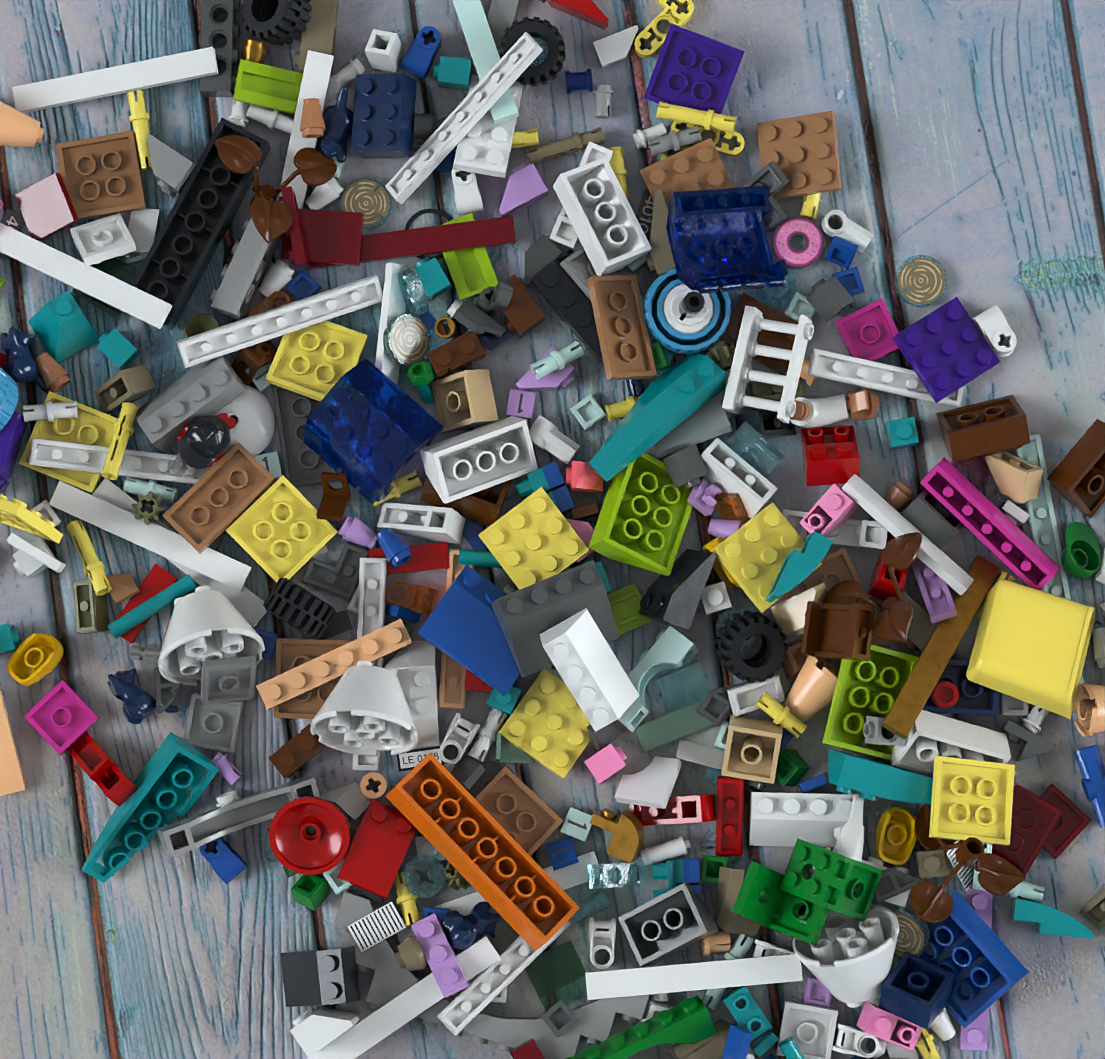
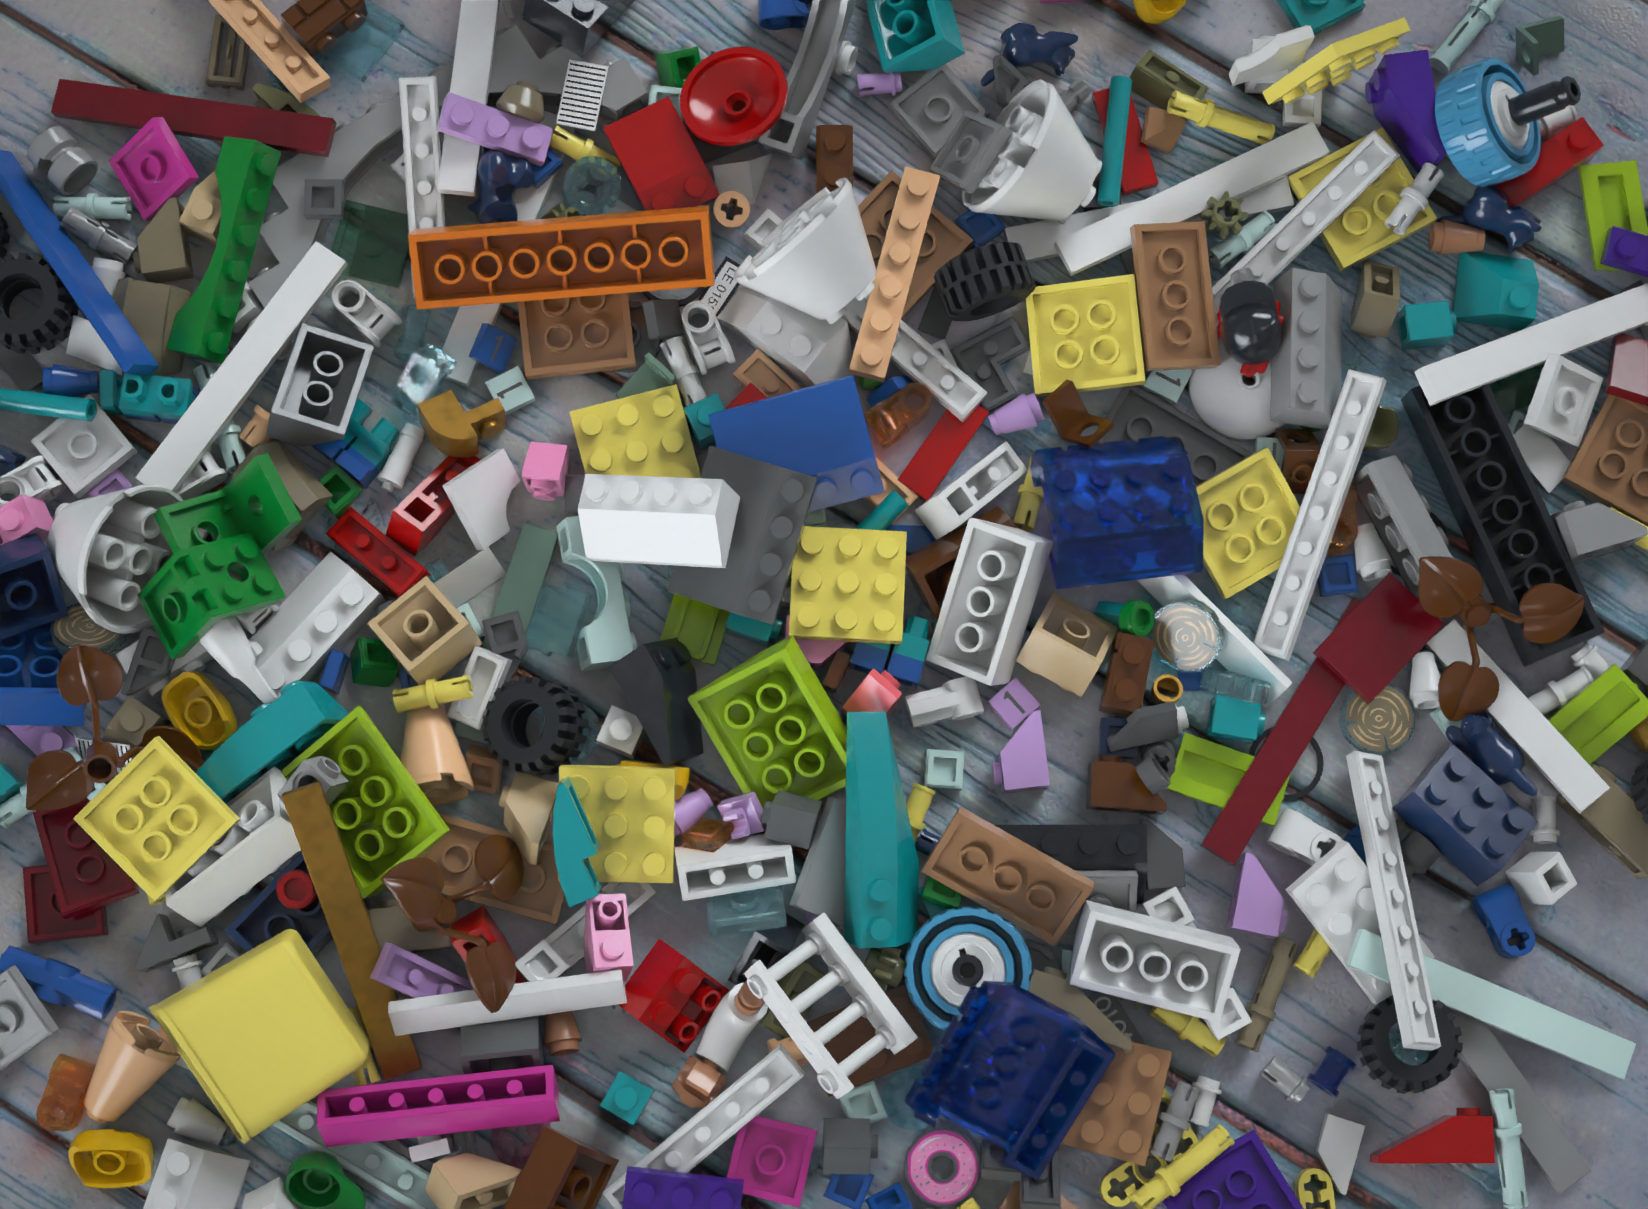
camera: 120 degrees right, 5 degrees down
(122, 431) = (1330, 254): light yellow pin -> none
(298, 251) = (1407, 607): dark red plate -> none
(312, 120) = (1524, 728): nougat cone -> none
(394, 548) = (967, 435): blue cone -> none
(453, 73) = (1454, 936): teal brick -> none
(557, 360) = (1029, 775): light aqua pin -> none
(838, 631) = (464, 824): reddish brown panel -> none

